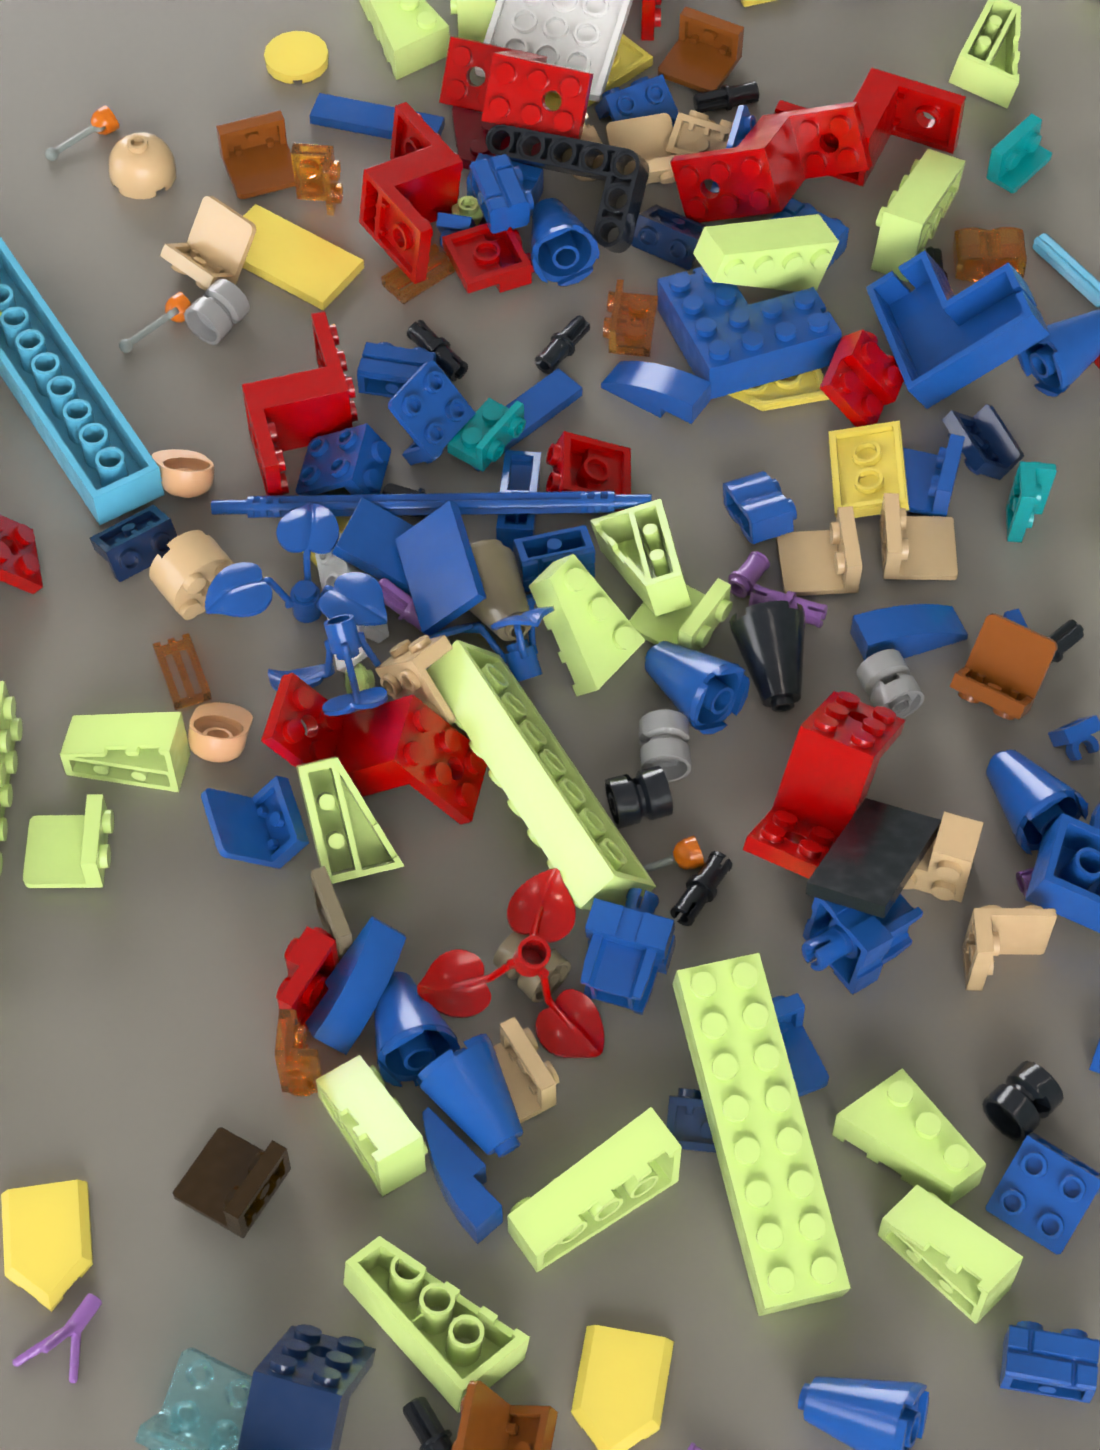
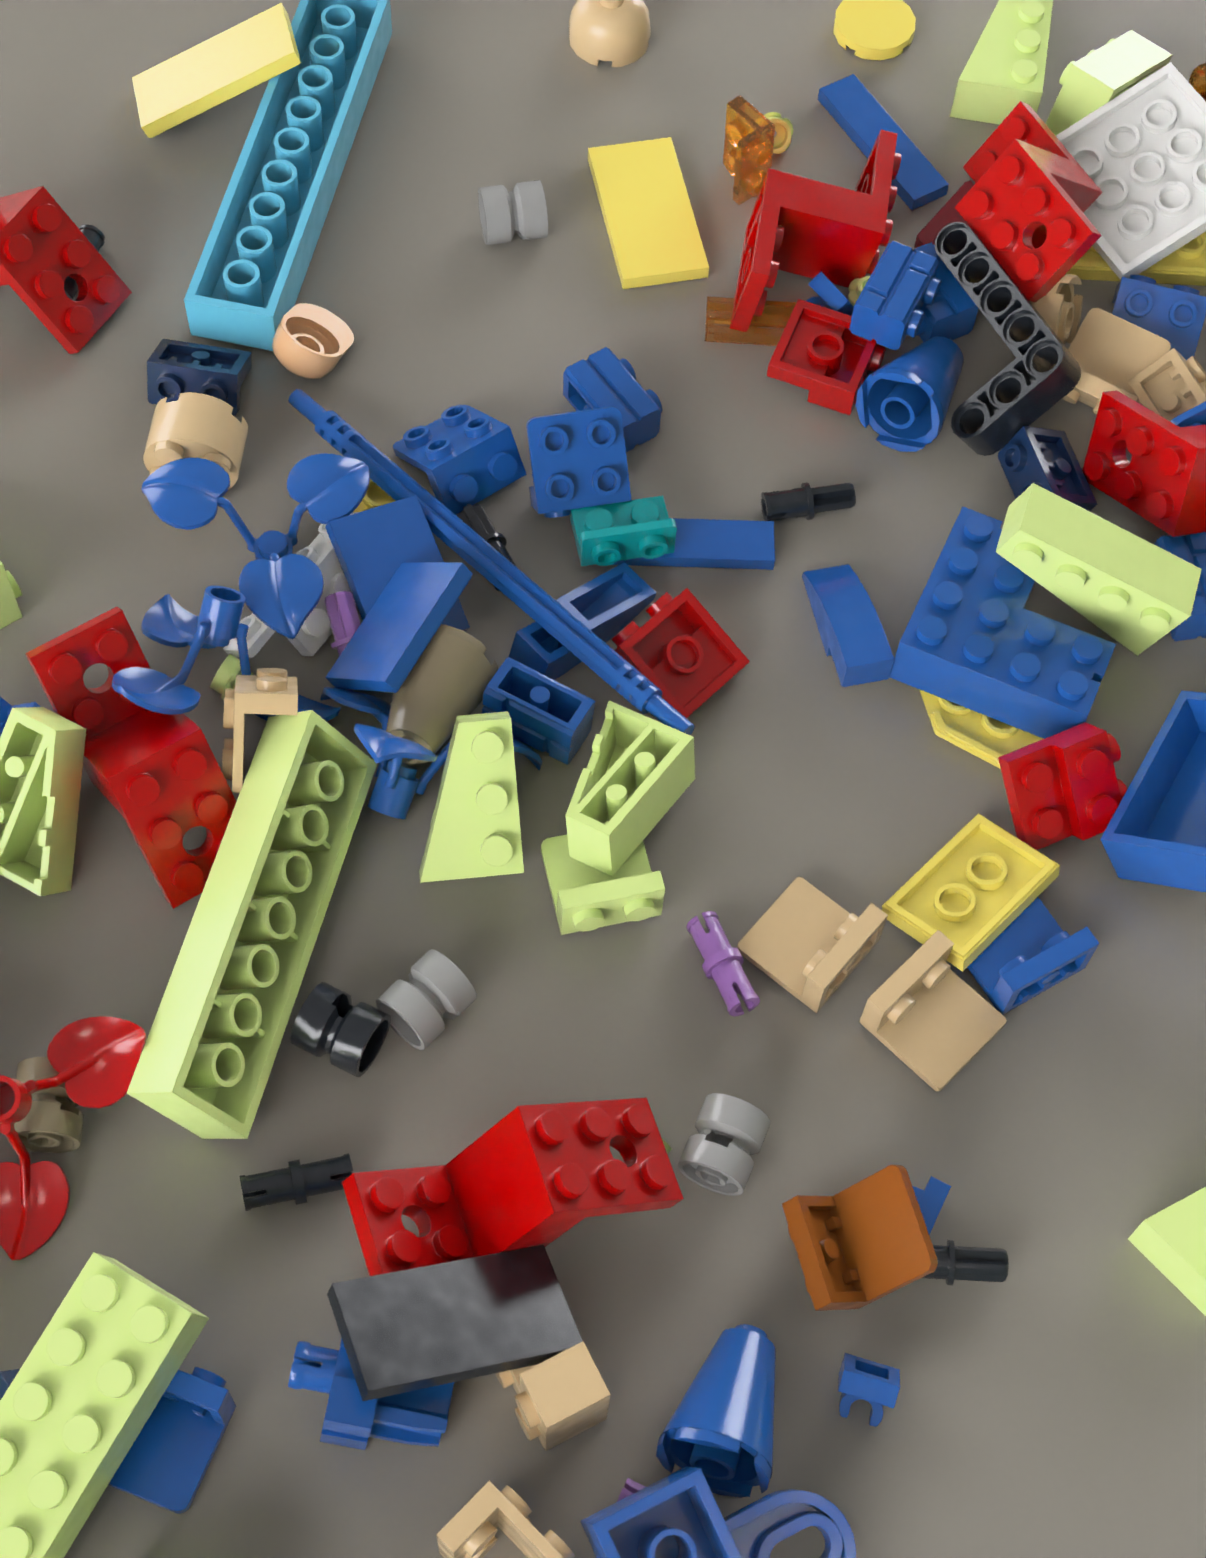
camera: 40 degrees right, 5 degrees up
(173, 647) = (86, 521): clear orange tile -> none
(174, 309) = (482, 178): hinge -> none
(214, 246) = (573, 155): tan bracket -> none
(219, 731) = (51, 609): light nougat cap -> none
(256, 154) = (717, 76): dark orange bracket -> none
(299, 406) = (466, 362): red bracket -> none
(445, 357) = (677, 411): black pin -> none
(626, 950) = (133, 1178): blue piece -> none
(631, 322) = (901, 530): clear orange bracket -> none
(685, 855) = (323, 1132): orange hinge -> none
(698, 684) = (527, 966): blue cone -> none
(748, 574) = (720, 894): medium lavender pin -> none
(759, 507) = (806, 831): blue brick -> none
(773, 650) = (640, 1000): black cone -> none
(907, 629) = (816, 1101): blue slope -> none
(987, 442) = (1131, 966): dark blue bracket -> none
(1028, 497) = (1113, 1063): teal bracket -> none

